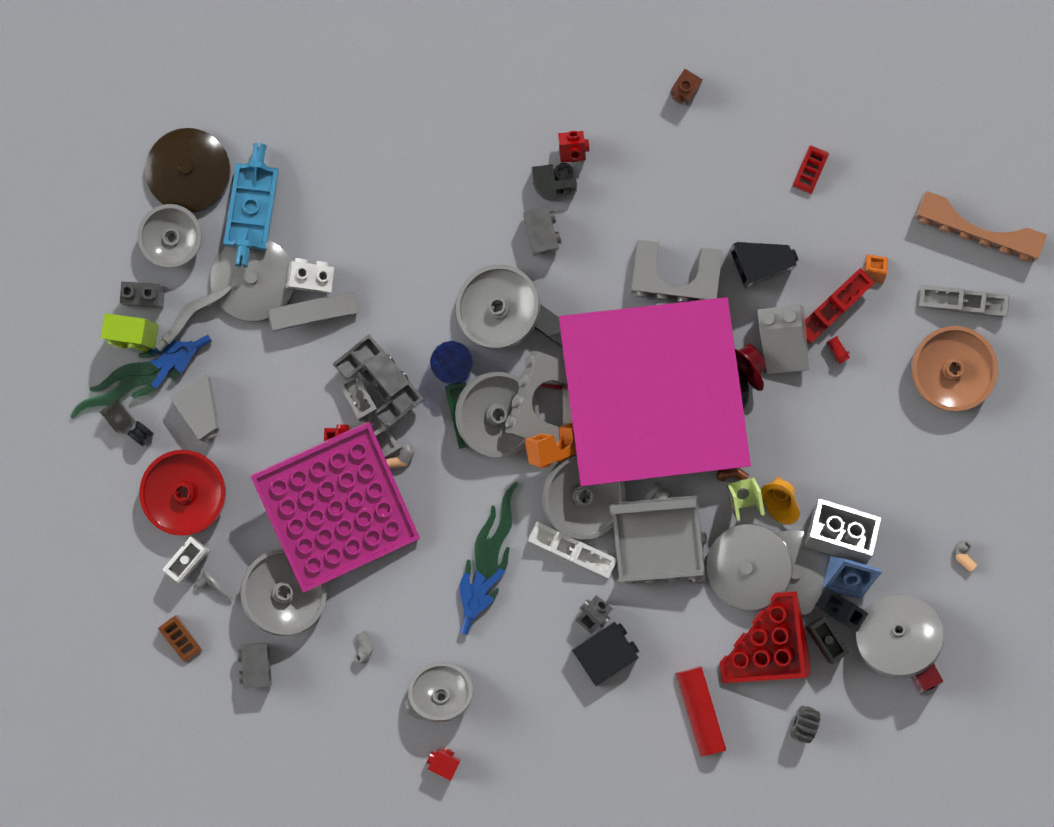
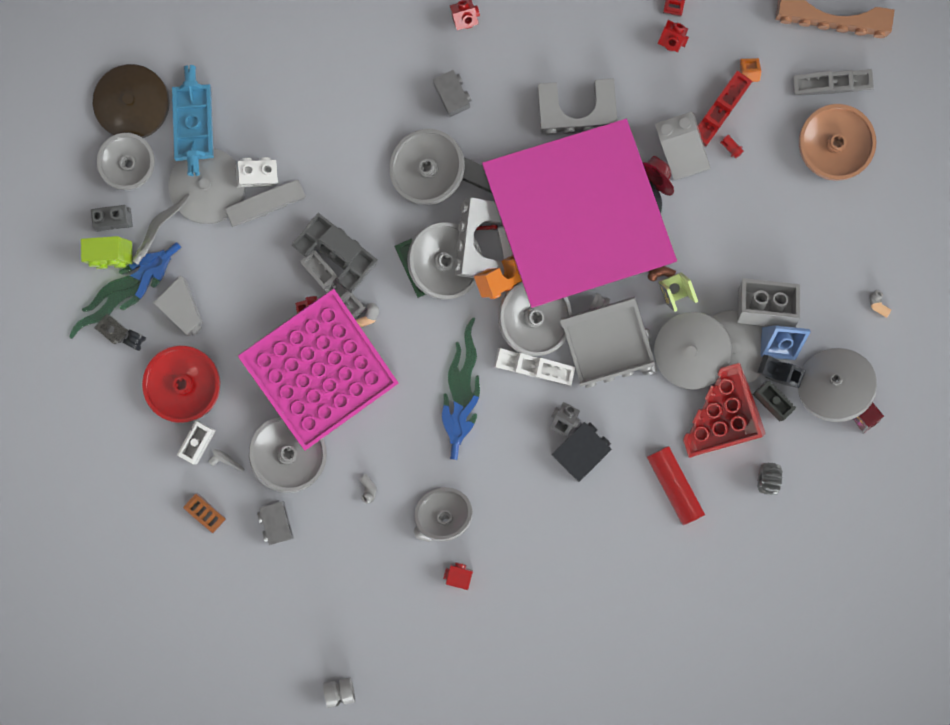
camera: 10 degrees left, 0 degrees up
(451, 362) = (395, 223): clear blue brick -> none
(547, 187) = (448, 53): pearl dark grey brick -> none
(561, 166) = (458, 34): black bush -> none
(762, 261) = (650, 81): black slope -> none
(780, 501) = (709, 288): light orange piece -> none
(797, 216) = (673, 36): none -> red brick

